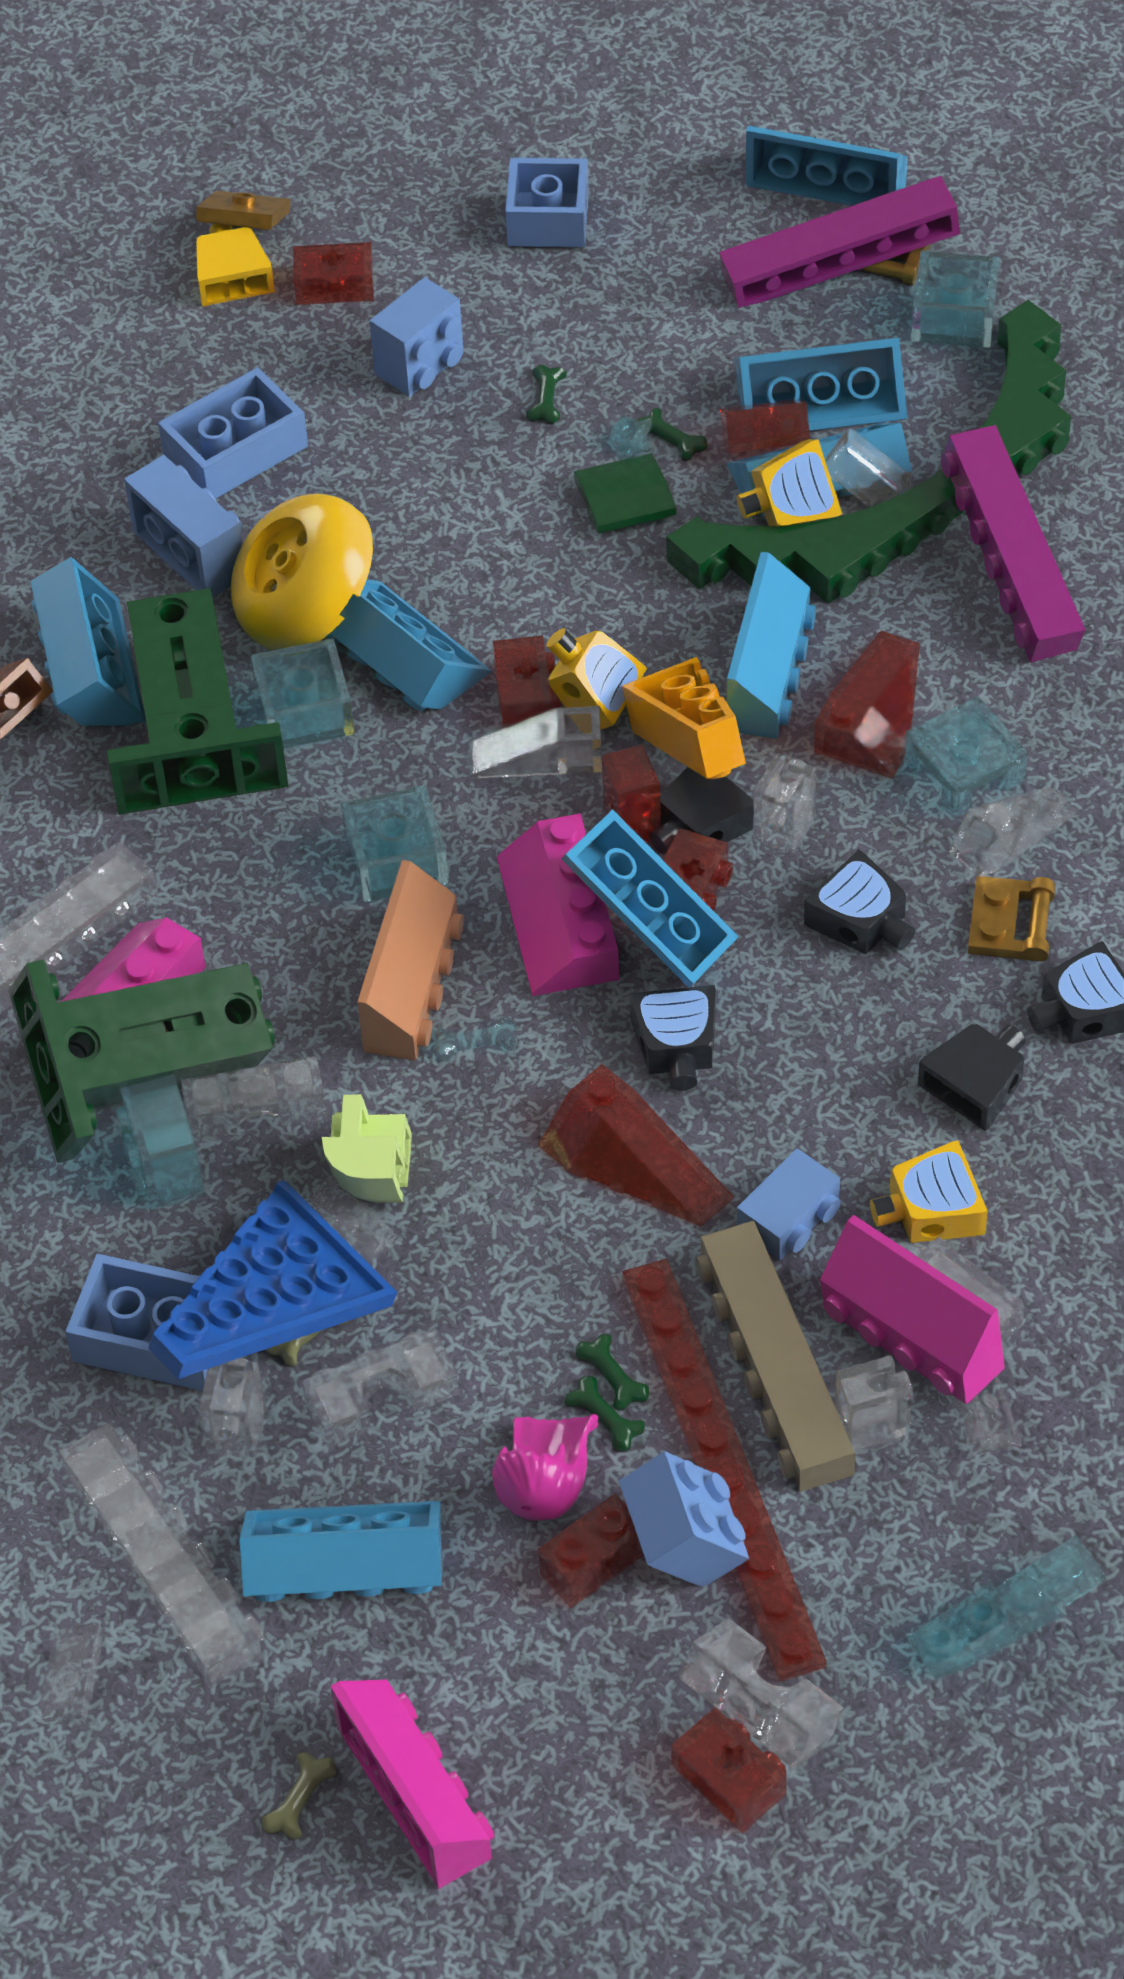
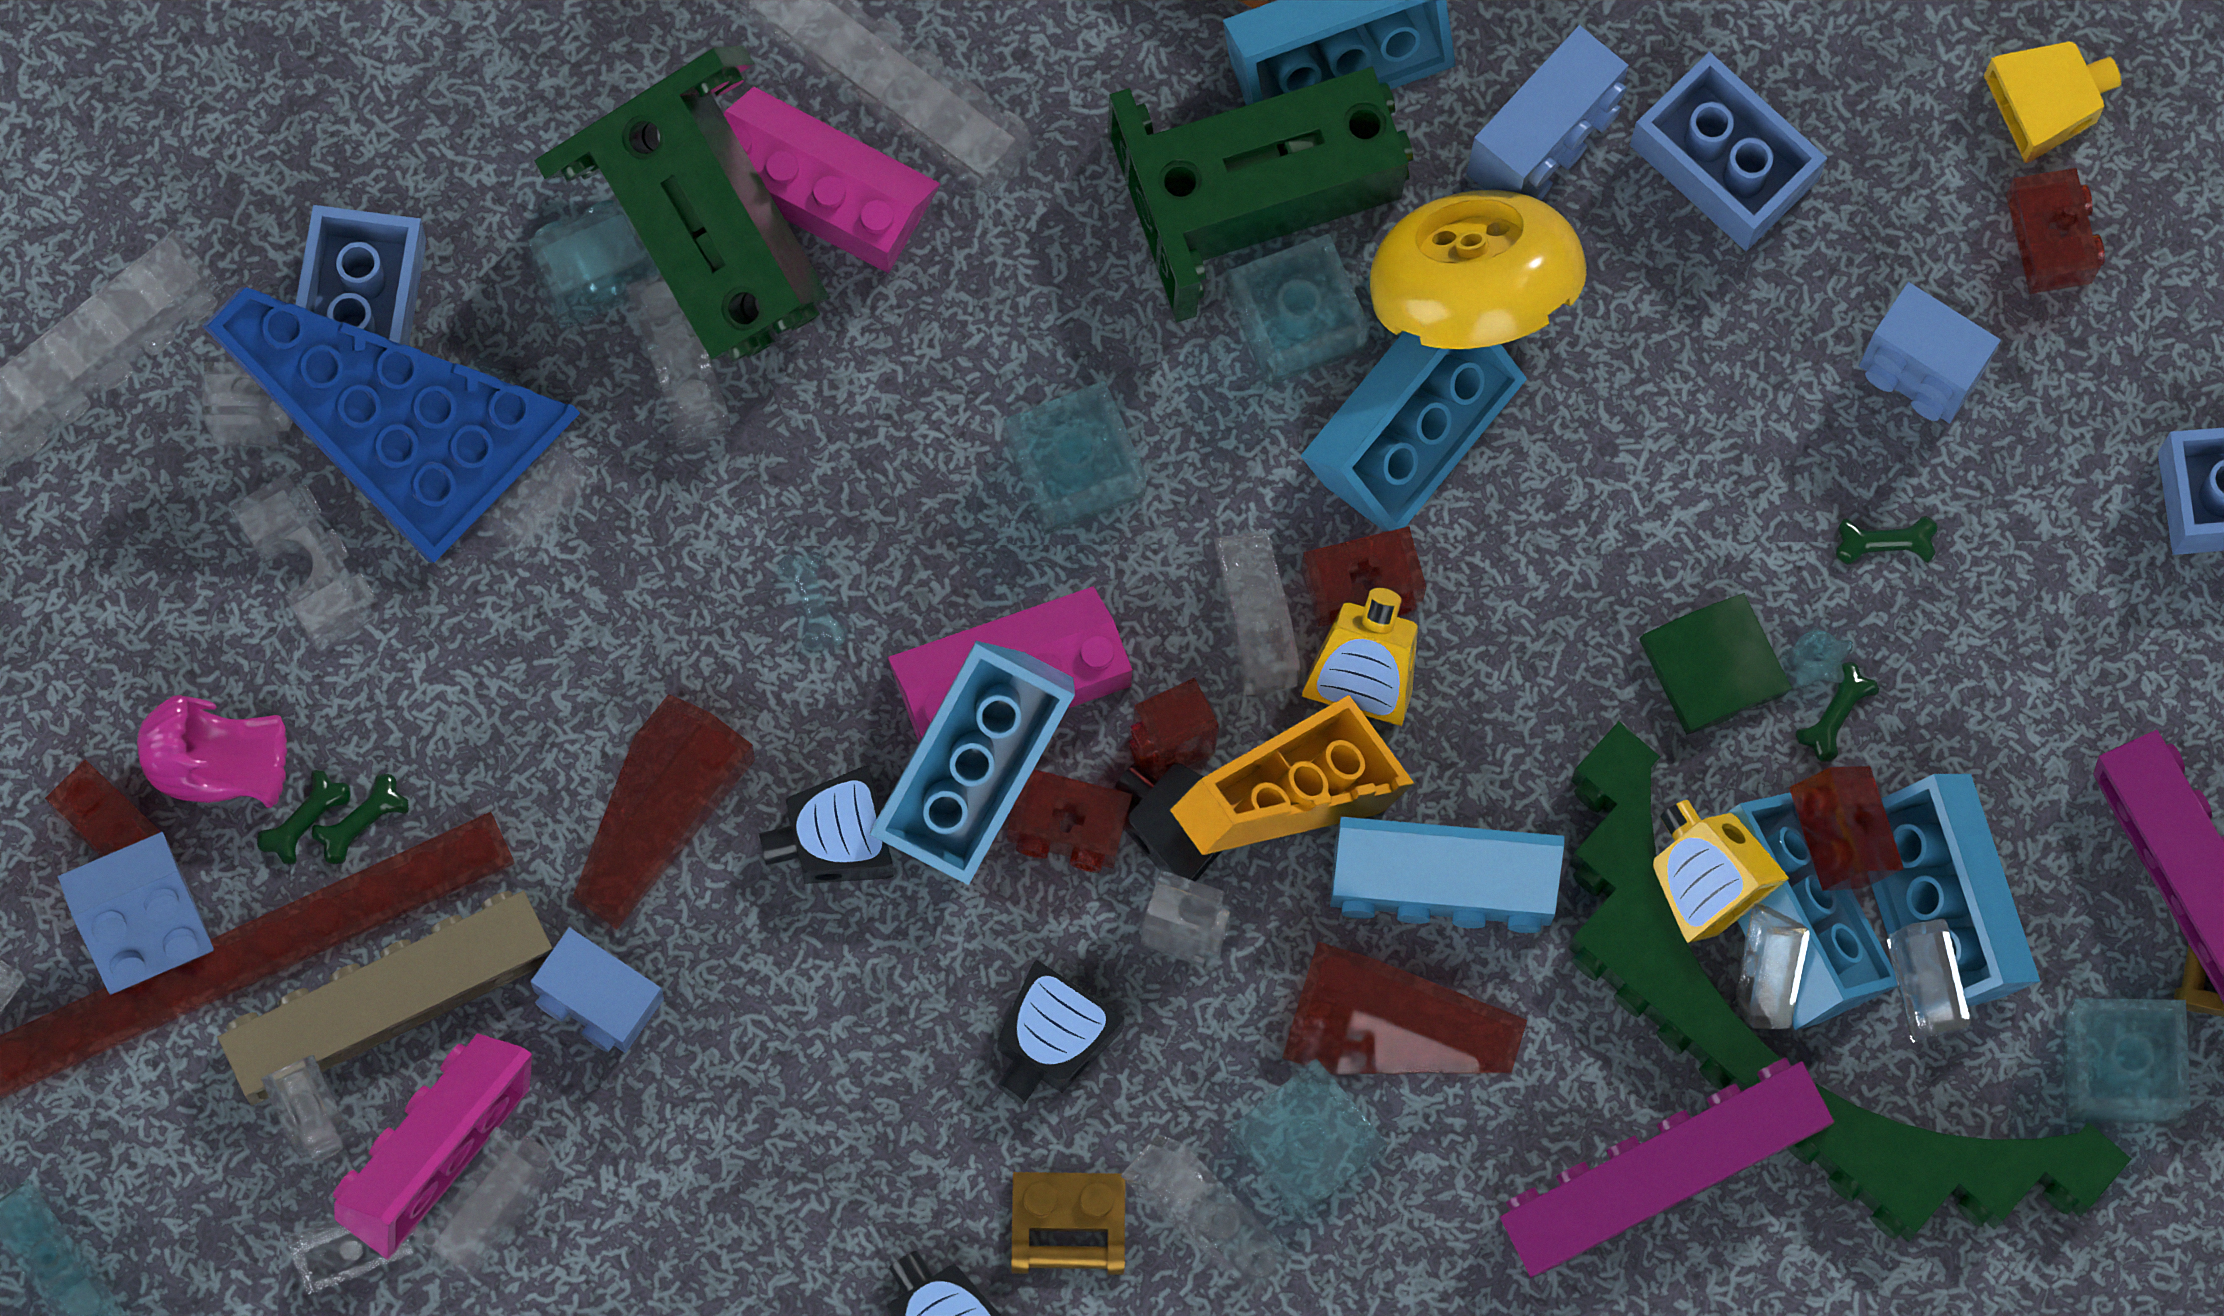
camera: 75 degrees right, 20 degrees up
(242, 209) = (2150, 93): pearl gold plate -> none
(341, 1550) = (97, 553): dark azure slope -> none
(369, 1152) = (603, 498): yellowish green brick -> none
(408, 965) = (887, 501): nougat slope -> none
(883, 397) = (1928, 980): none -> clear slope
(933, 1197) = (625, 1158): torso -> none
(975, 1072) = (814, 1197): black torso -> none

